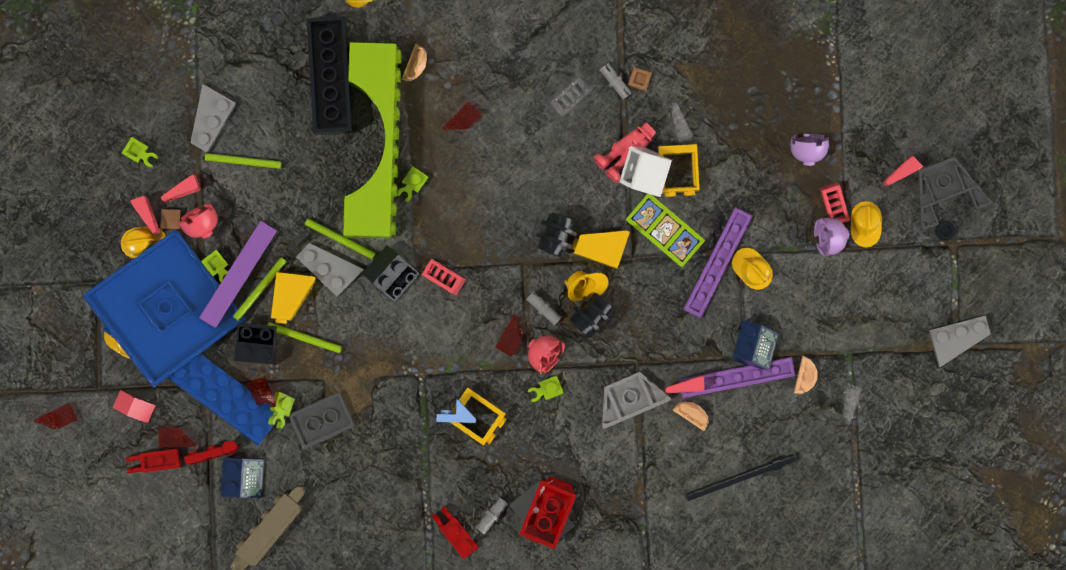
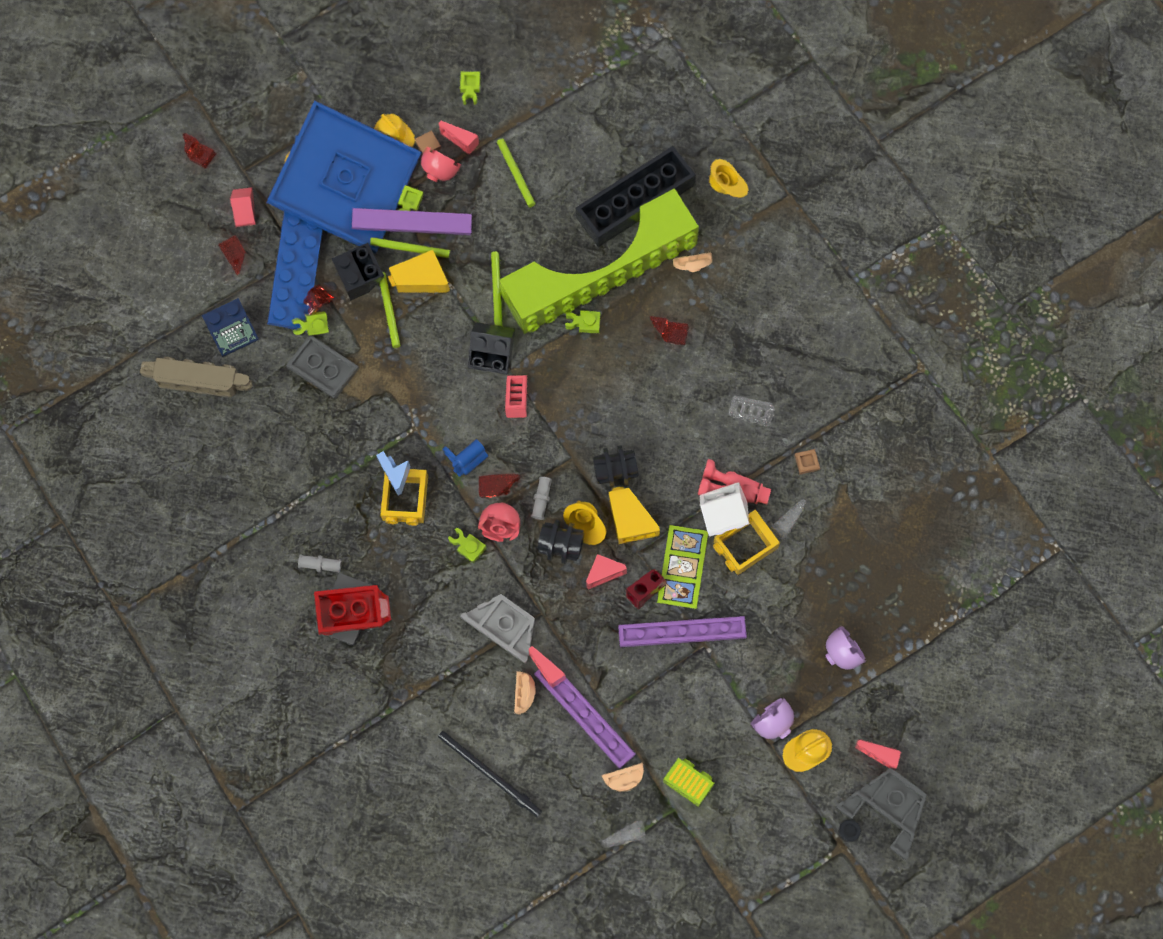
camera: 65 degrees right, 15 degrees down
(144, 209) = (422, 118): coral slope -> none
(156, 461) = (204, 250): red hinge -> none
(210, 118) = (536, 126): light grey wing -> none
(212, 453) = (237, 290): red hinge -> none
(329, 269) = (463, 296): light grey wing -> none
(456, 534) = (284, 541): red hinge -> none
(476, 347) = (468, 458): none -> blue piece
(615, 81) = (790, 440): light grey pin -> none
(633, 295) = (604, 571): none -> coral slope
(667, 270) = (645, 588): none -> dark red leg
(752, 268) = (696, 667): yellow piece -> none
(755, 345) = (624, 709): dark blue slope -> none
(829, 188) = (812, 690): coral slope -> none
(839, 329) = (688, 781): none -> lime brick
(957, 338) = (752, 905): light grey wing -> none

